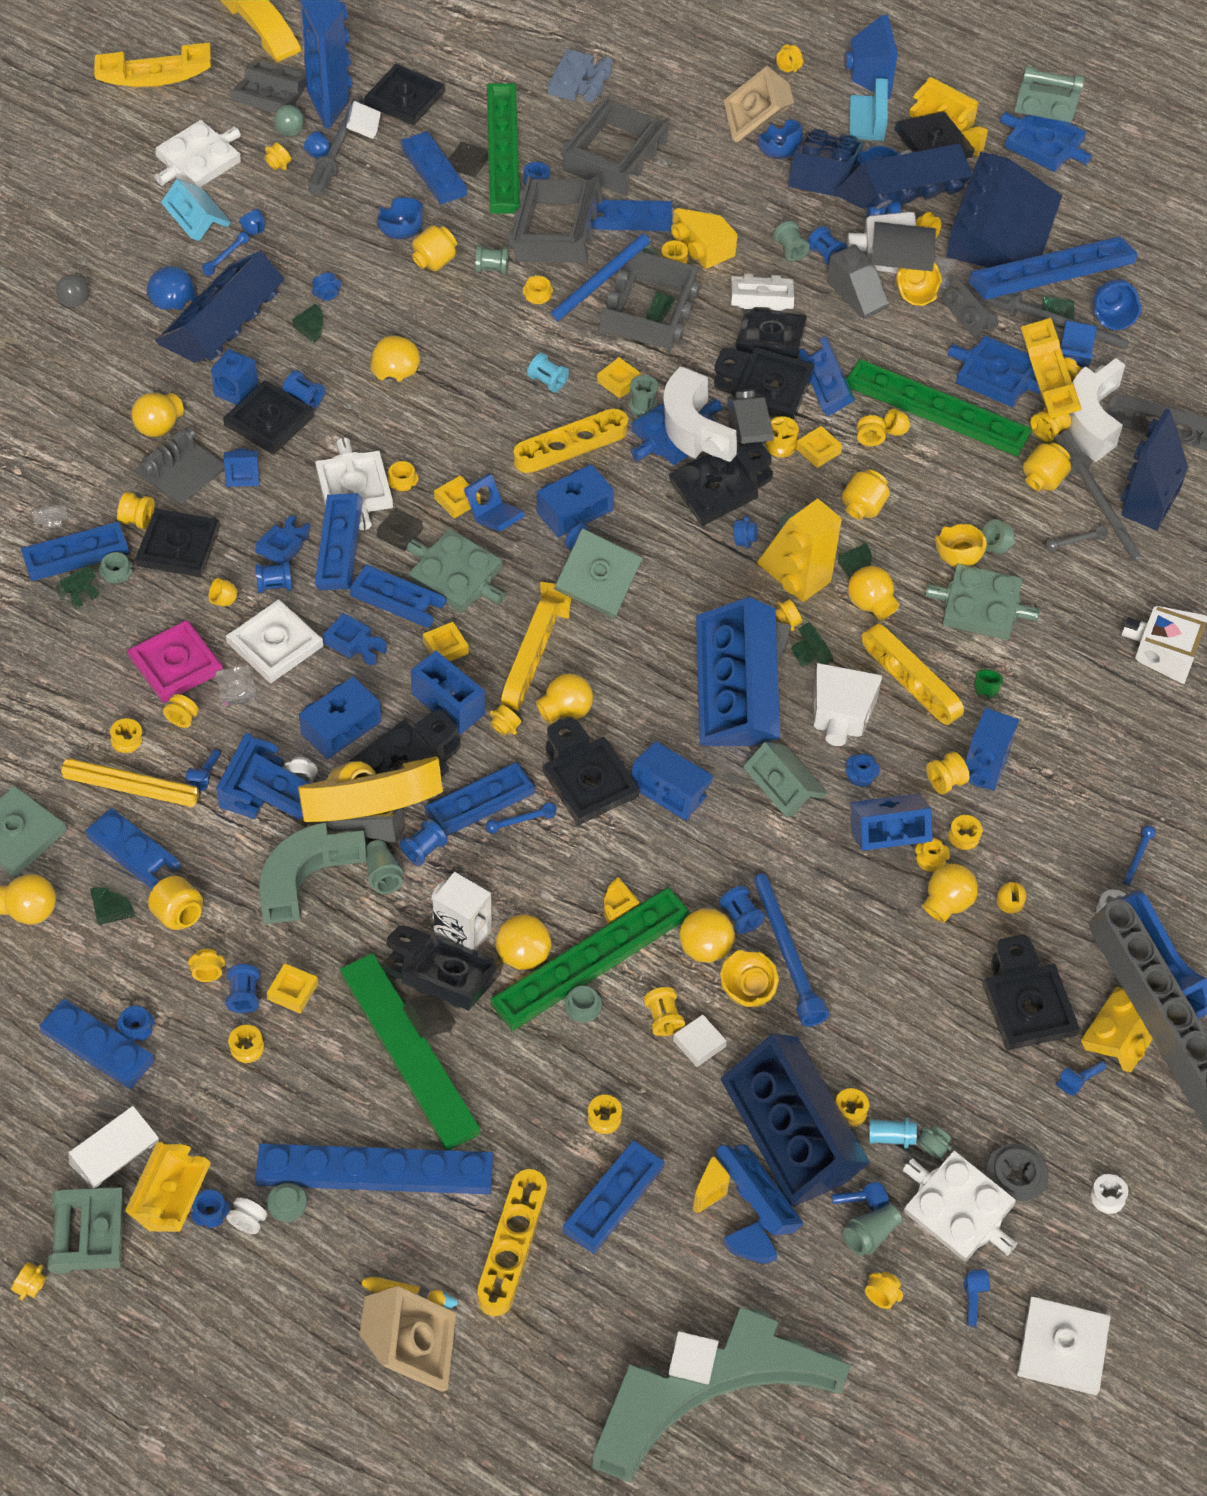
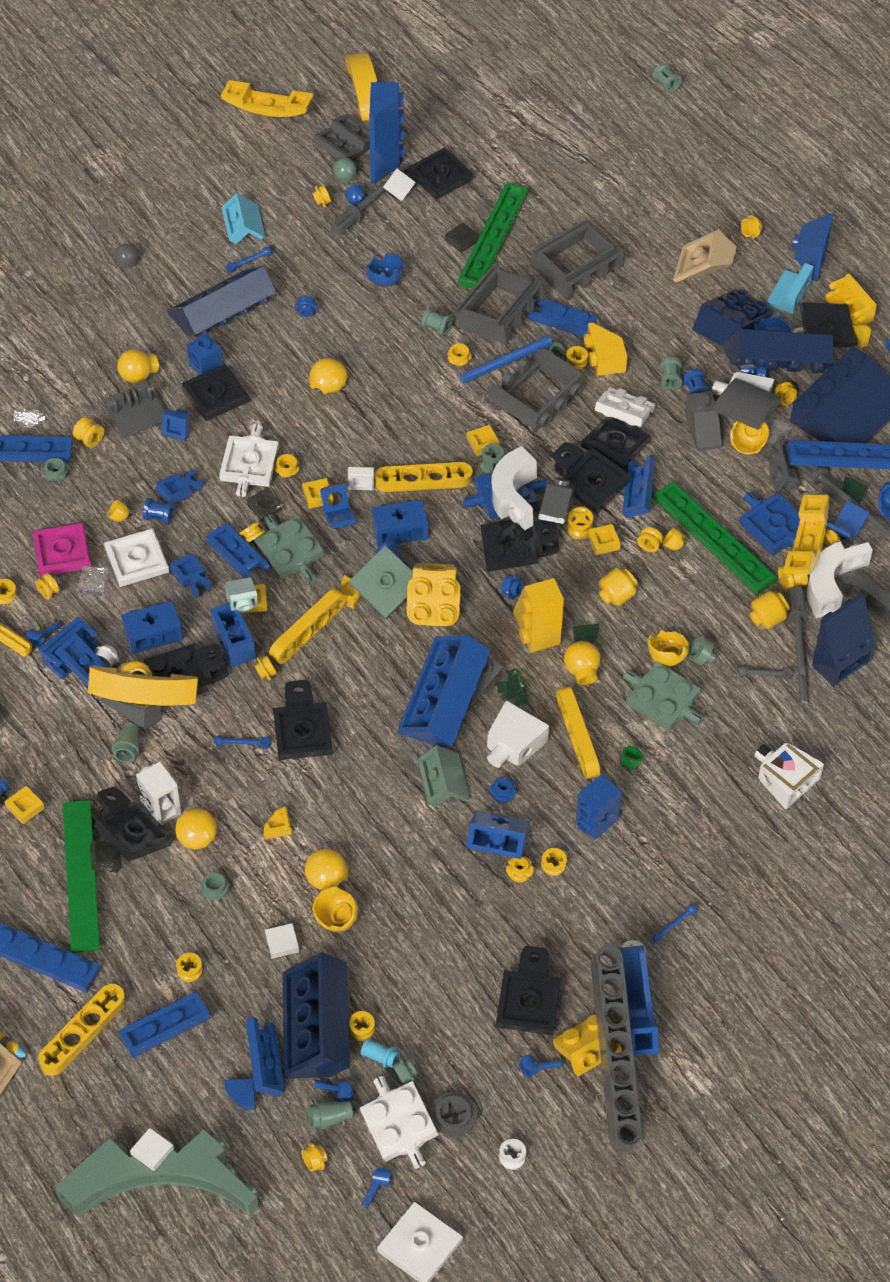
camera: 25 degrees right, 0 degrees up
(77, 583) = (20, 473): clear green tile -> none
(171, 288) = (195, 274): blue hair -> none
(177, 542) = (106, 465): black plate -> none
(197, 154) = (266, 177): white plate -> none
(253, 222) = (278, 240): blue hinge -> none
(296, 860) = (68, 718): sand green arch -> none
(303, 389) = (249, 379): blue bush -> none
(310, 323) = (281, 330): clear green tile -> none
(338, 541) = (214, 499): blue plate -> none
(403, 565) = (252, 532): none -> yellow bush
(423, 842) = (163, 735): blue bush -> none
(433, 167) = (433, 237): blue plate -> none
(434, 248) = (398, 300): yellow head -> none
(441, 638) = (241, 594): none -> light aqua slope
(480, 799) = (220, 718): blue tile -> none
(501, 462) = (361, 478): none -> white tile
(536, 168) = (507, 259): blue bush -> none
(548, 372) = (432, 420): medium azure bush -> none
(566, 697) = (316, 666): yellow piece -> none
(572, 73) = (575, 193): sand blue plate -> none
(589, 958) = (237, 856): green tile -> none
(660, 307) = (542, 395): clear green tile -> none
(663, 569) = (433, 595): none -> yellow piece
(668, 997) = (266, 911): yellow bush -> none
(671, 780) = (358, 750): blue hinge -> none
(712, 1186) = (231, 1042): yellow slope -> none
(741, 909) = (359, 860): blue bush -> none
(781, 142) = (705, 290): blue hair -> none
(788, 614) = (510, 658): yellow plate -> none
(810, 1007) = (370, 946): blue piece -> none
(947, 772) = (562, 813): yellow wheel -> none
(950, 891) = (515, 899): yellow piece -> none
(1004, 897) = (567, 922): yellow hinge -> none

